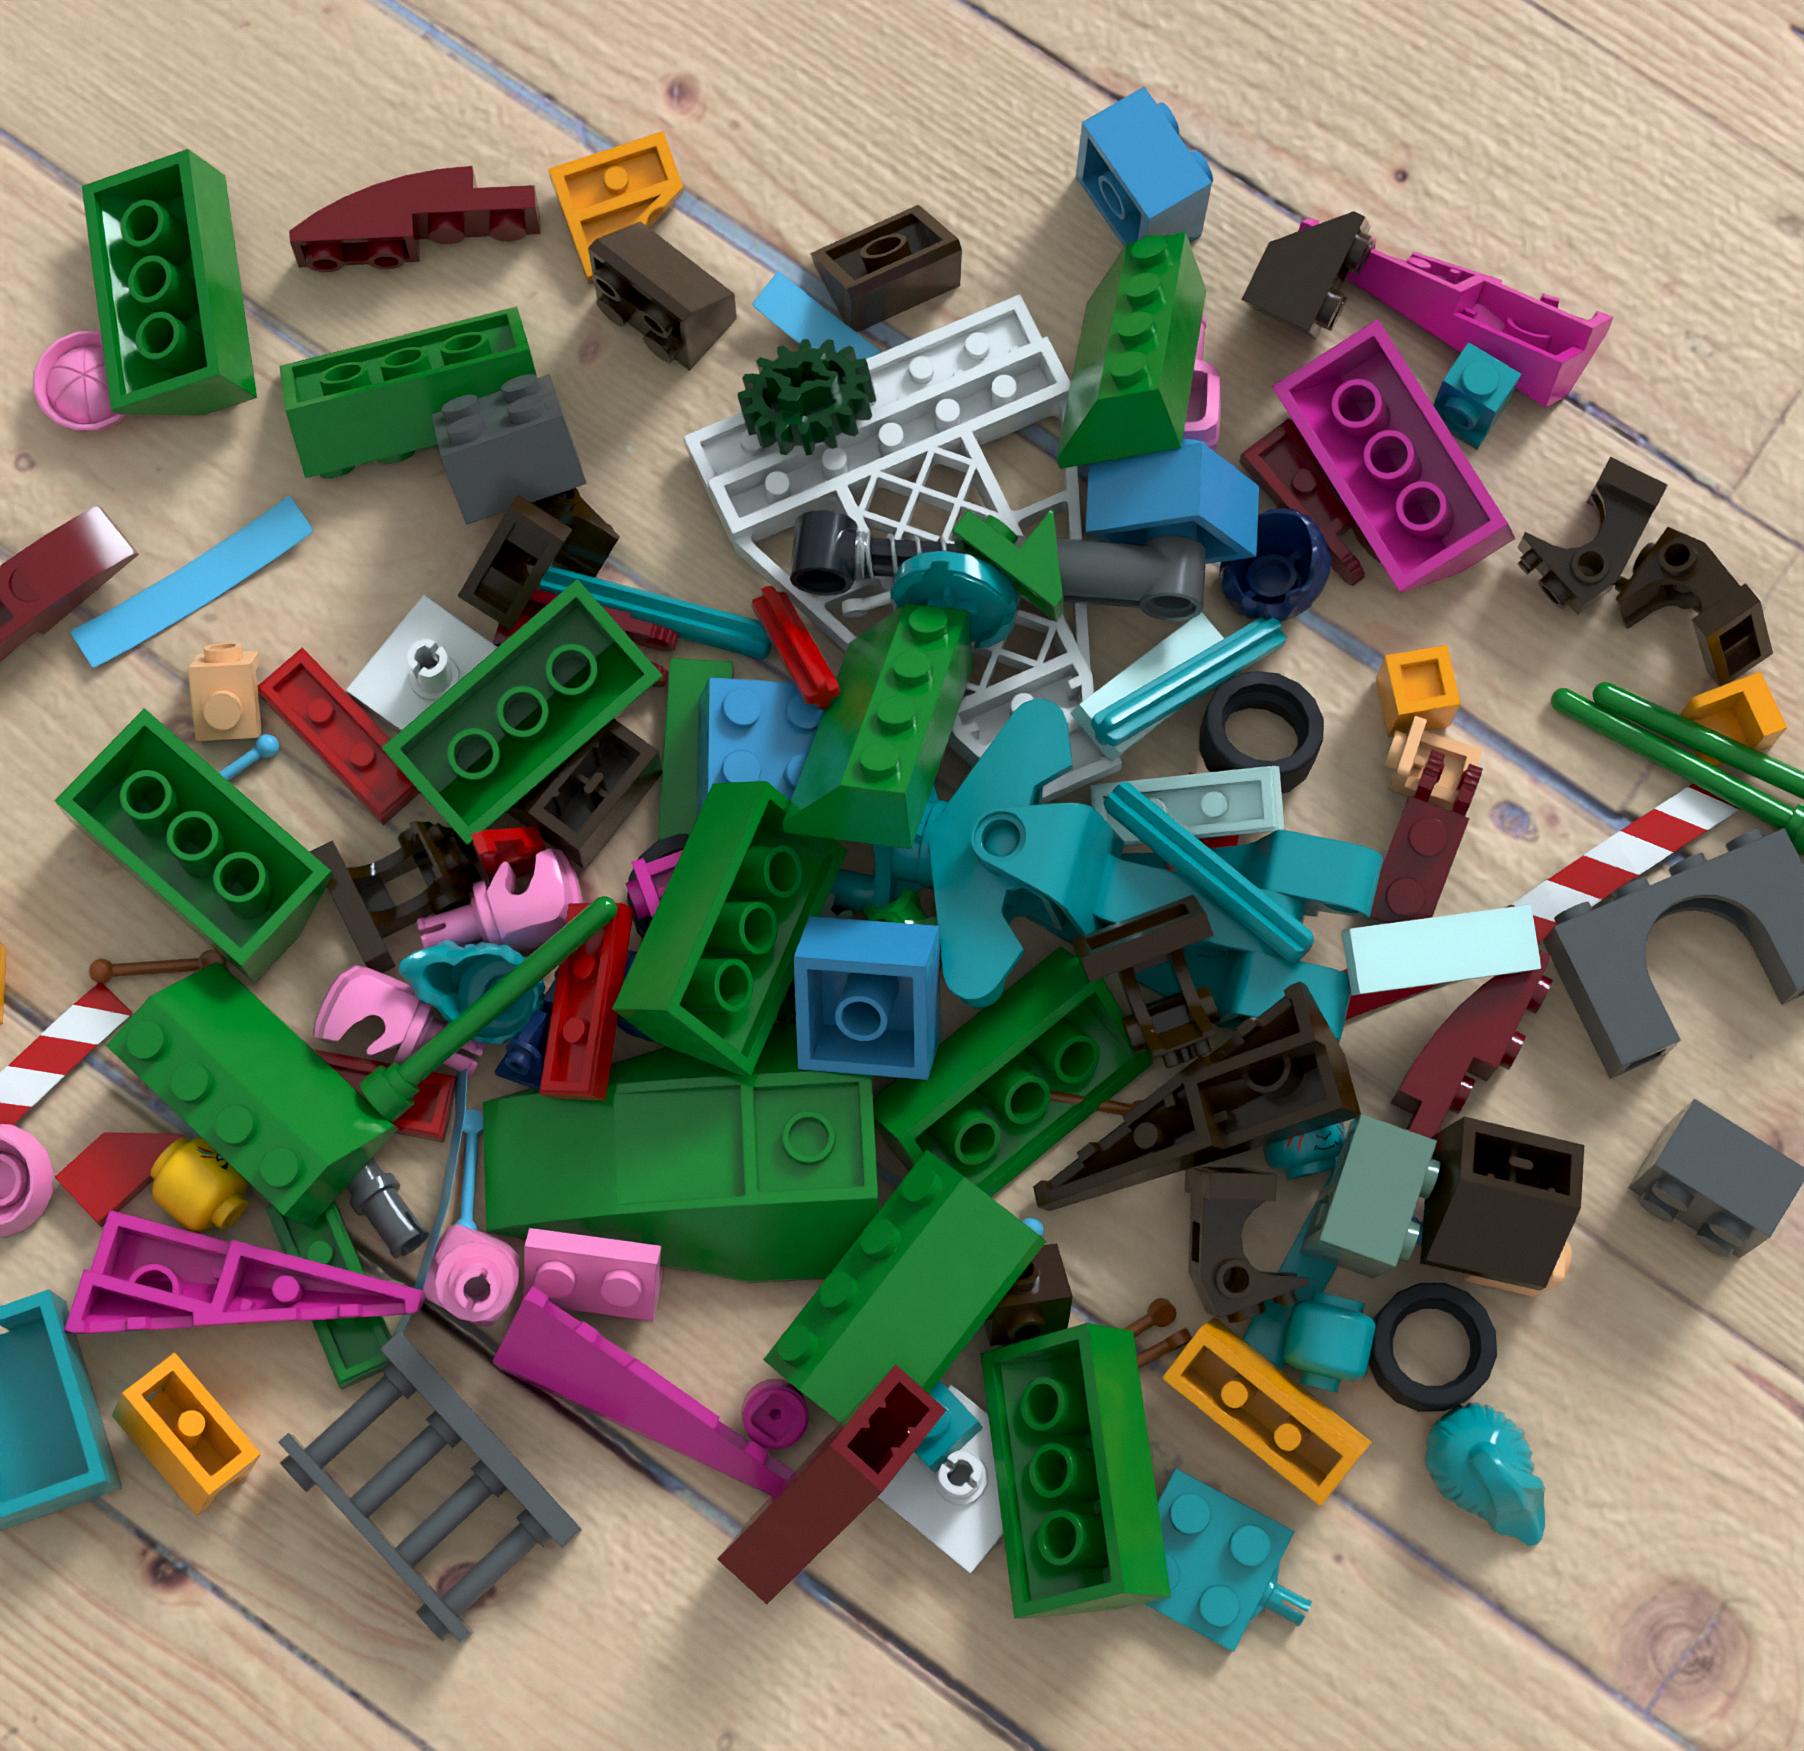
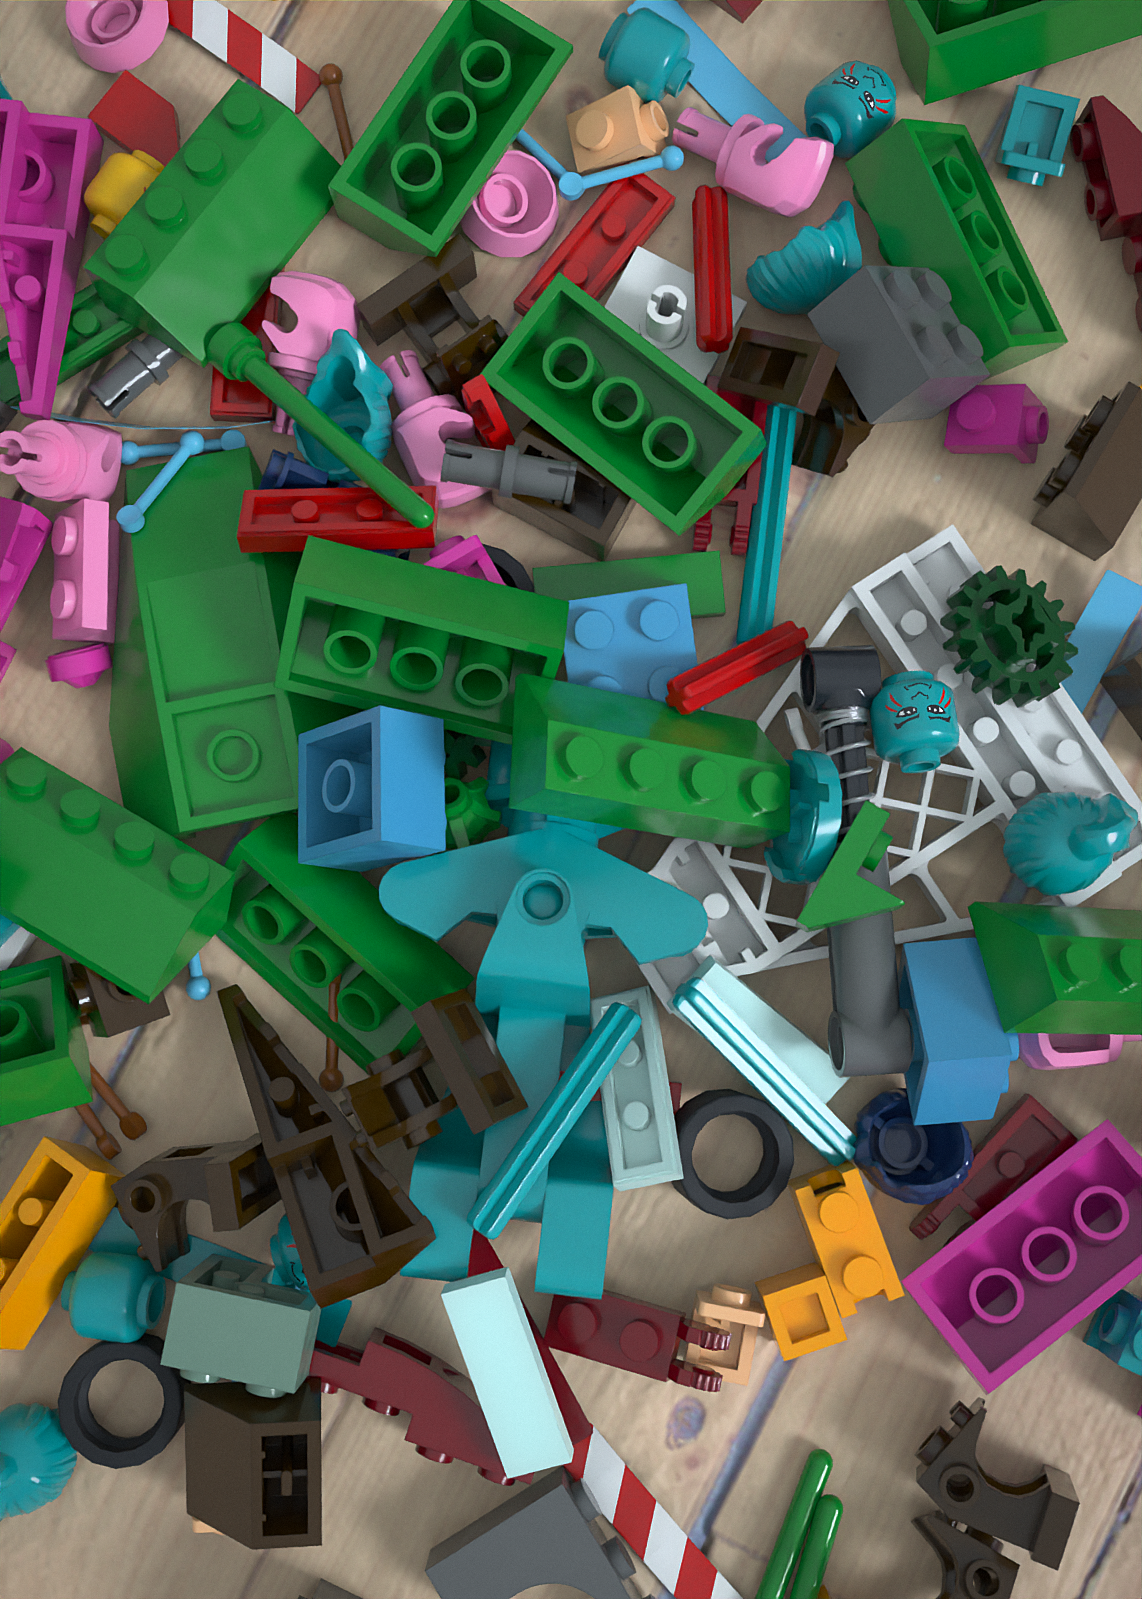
camera: 85 degrees right, 10 degrees up
(155, 649) = (646, 55): none -> teal head
(246, 466) = (851, 107): none -> teal head
(272, 742) = (572, 184): none -> medium azure hinge
(284, 573) = (781, 186): none -> bright pink piece
(293, 789) = (492, 219): none -> bright pink hat
(309, 300) = (1036, 134): none -> teal bracket
(387, 619) = (712, 269): none -> red axle
(403, 526) = (808, 266): none -> teal hair
(542, 1215) = (131, 516): none -> medium azure hinge
(572, 824) = (508, 471): none -> dark grey pin
(589, 381) = (997, 421): none -> dark pink bracket
(681, 1302) = (80, 665): none -> dark pink tile
(877, 491) = (914, 721): none -> teal head
(1008, 376) = (1066, 840): none -> teal hair
(1349, 638) = (845, 1236): none -> light orange brick

